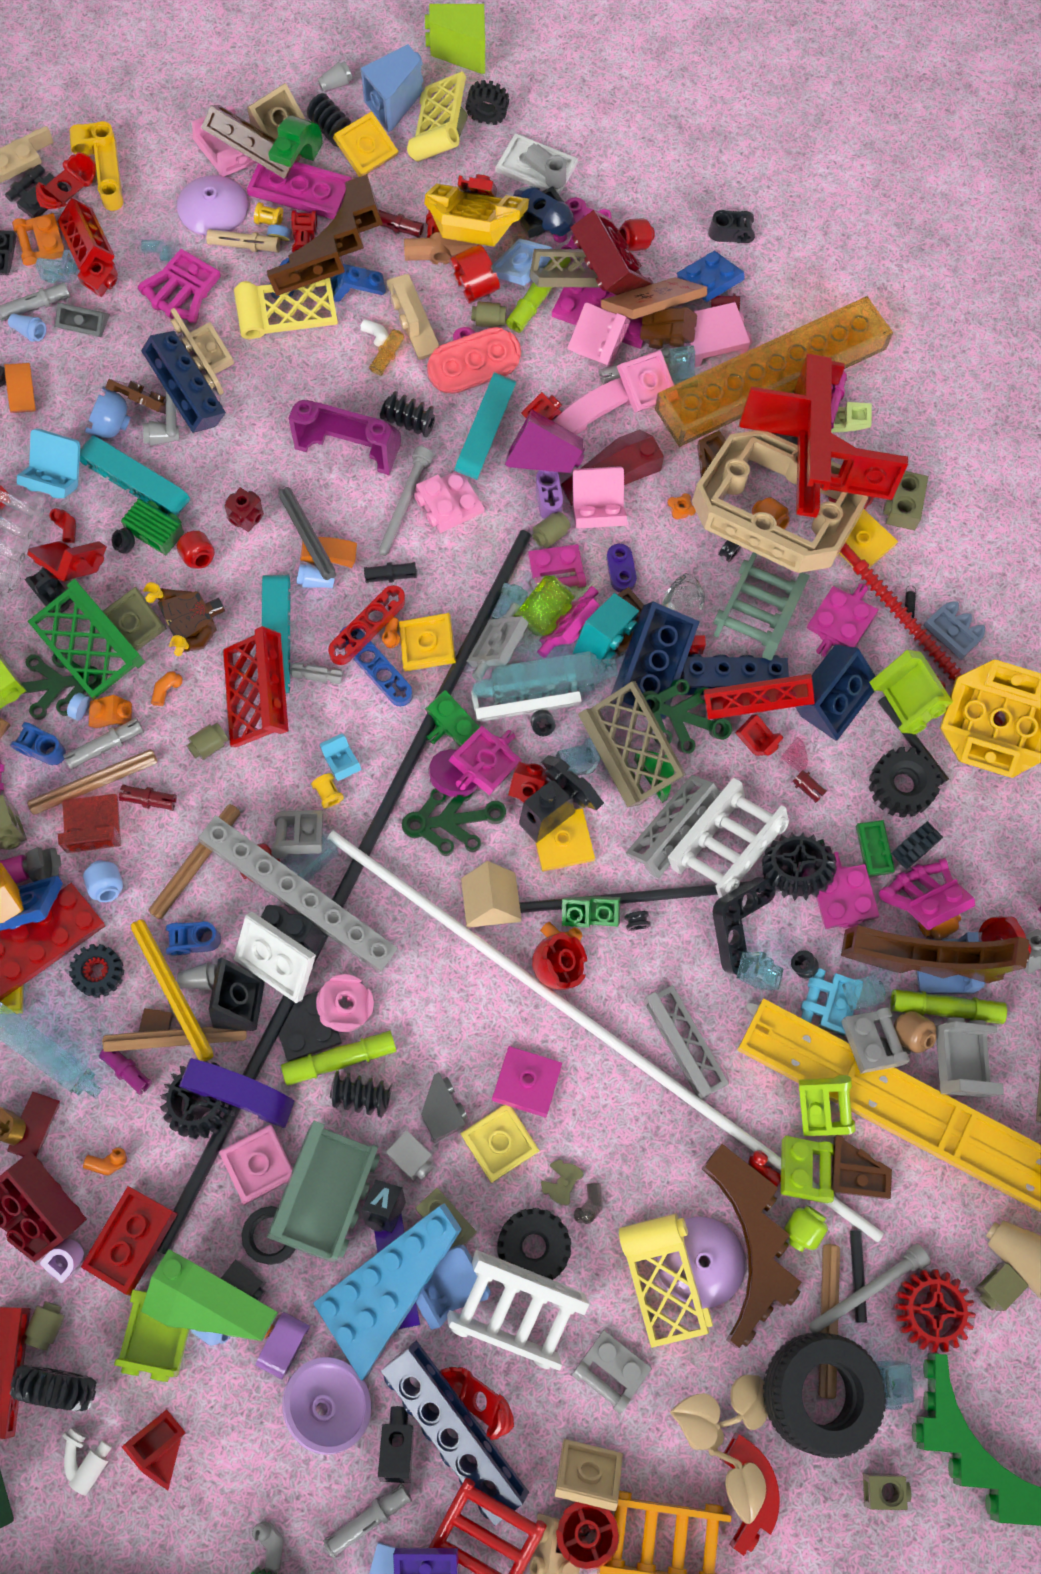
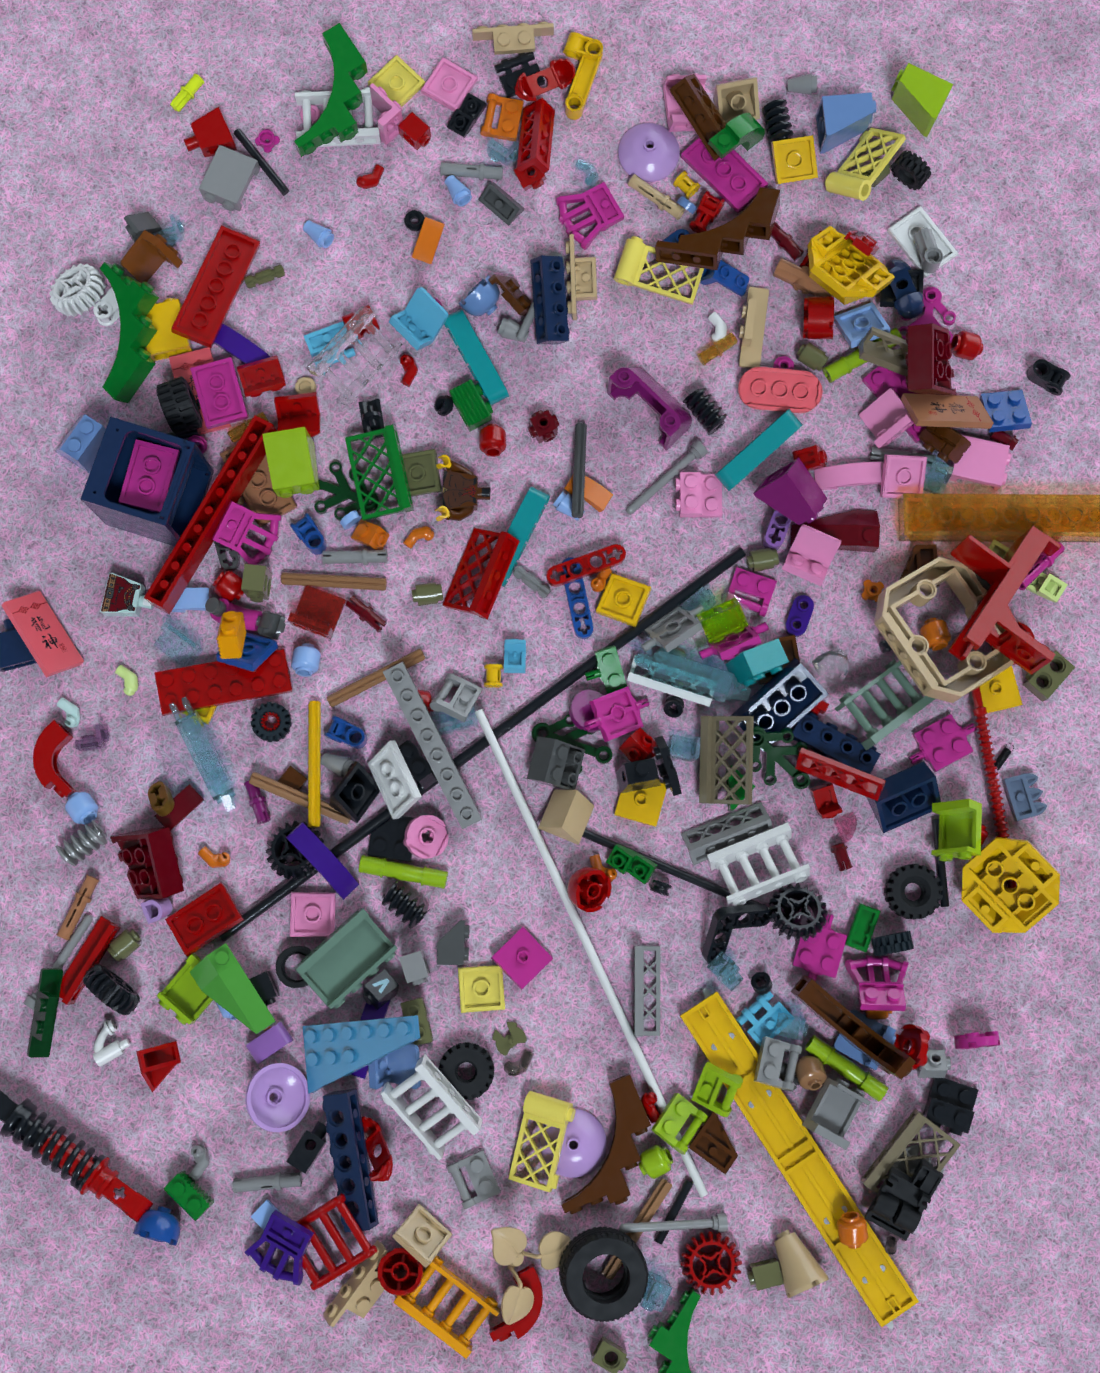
camera: 30 degrees right, 10 degrees up
(69, 562) = (394, 402): red bracket -> none
(390, 572) = (625, 531): black pin -> none
(447, 846) = (555, 763): none -> dark grey slope

